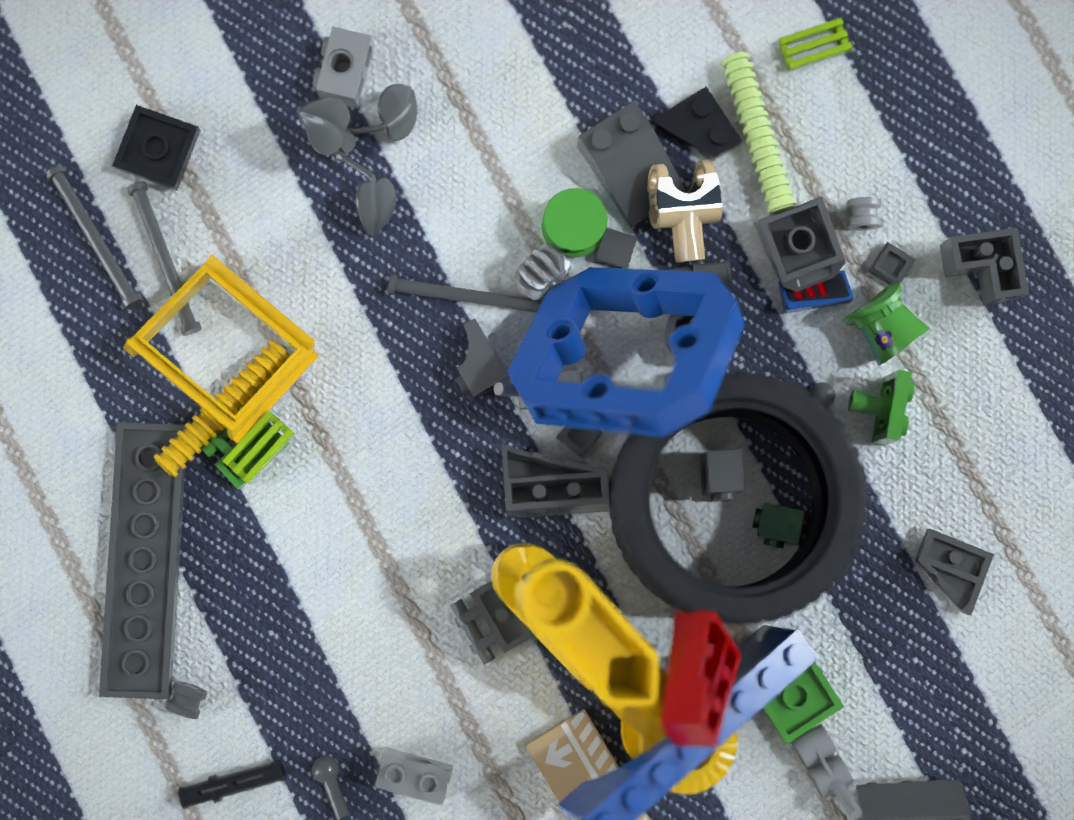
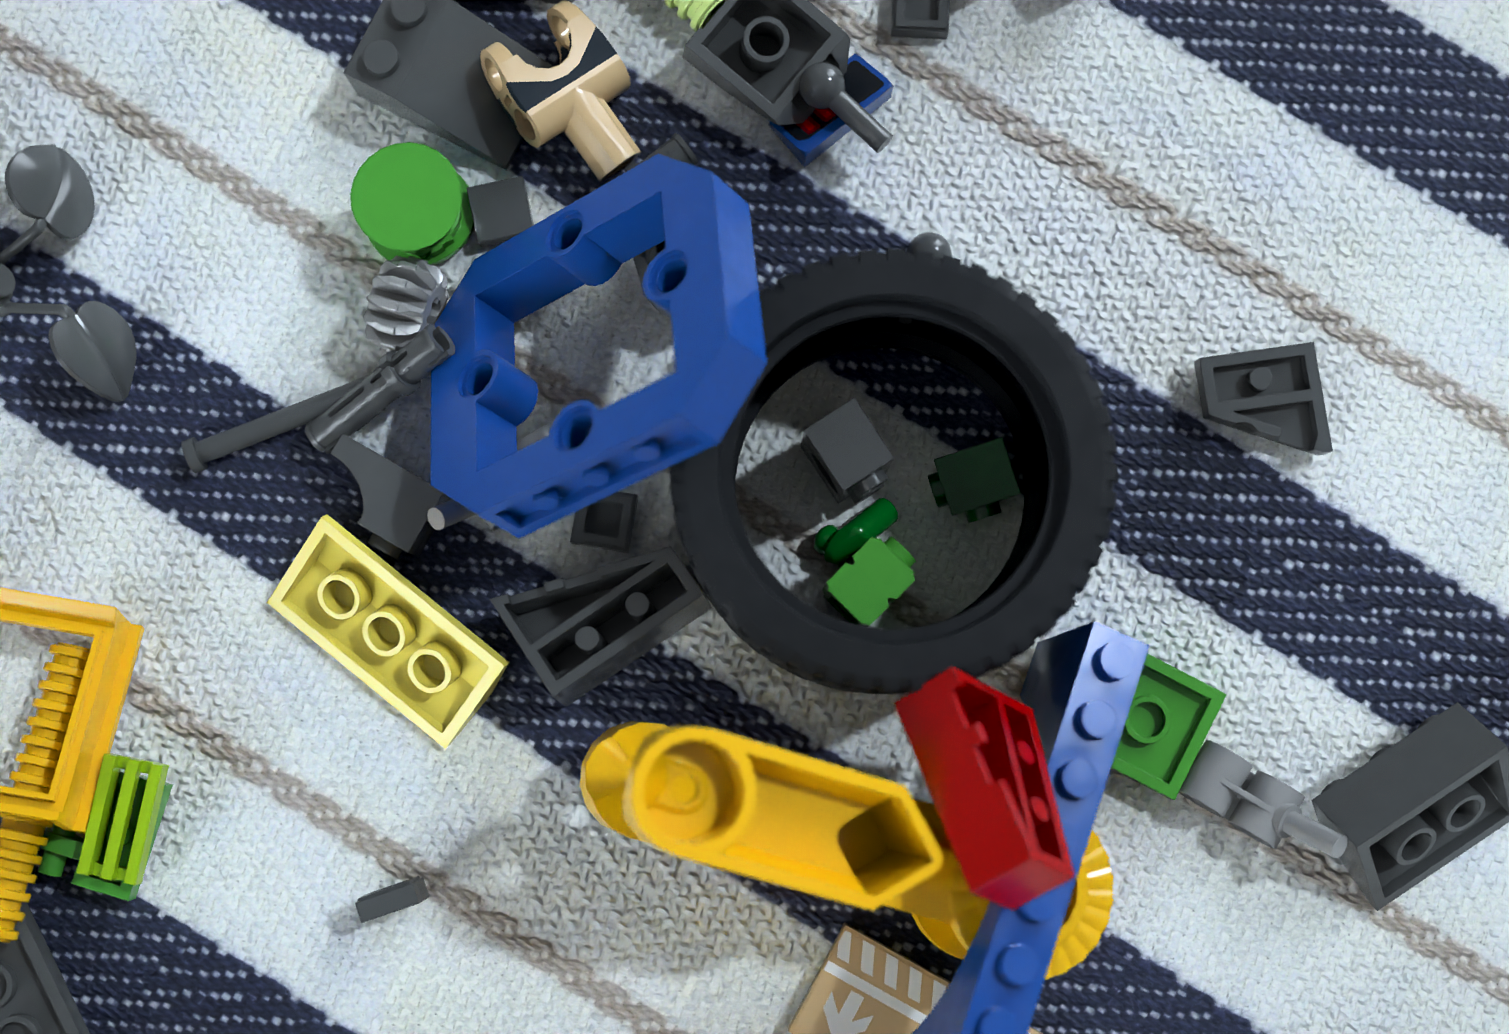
camera: 30 degrees left, 0 degrees up
(366, 563) = (391, 899): none -> dark grey tile
(439, 429) = (387, 632): none -> light yellow slope
(503, 623) = (637, 863): dark grey plate -> none
(518, 305) = (395, 376): none -> dark grey pin
(696, 545) = (870, 581): none -> bright green brick
(701, 517) = (842, 544): none -> green arm
(817, 281) = (824, 88): none -> dark grey bar
(887, 323) = (962, 91): bright green hat -> none
(888, 407) = (1036, 213): bright green plate -> none

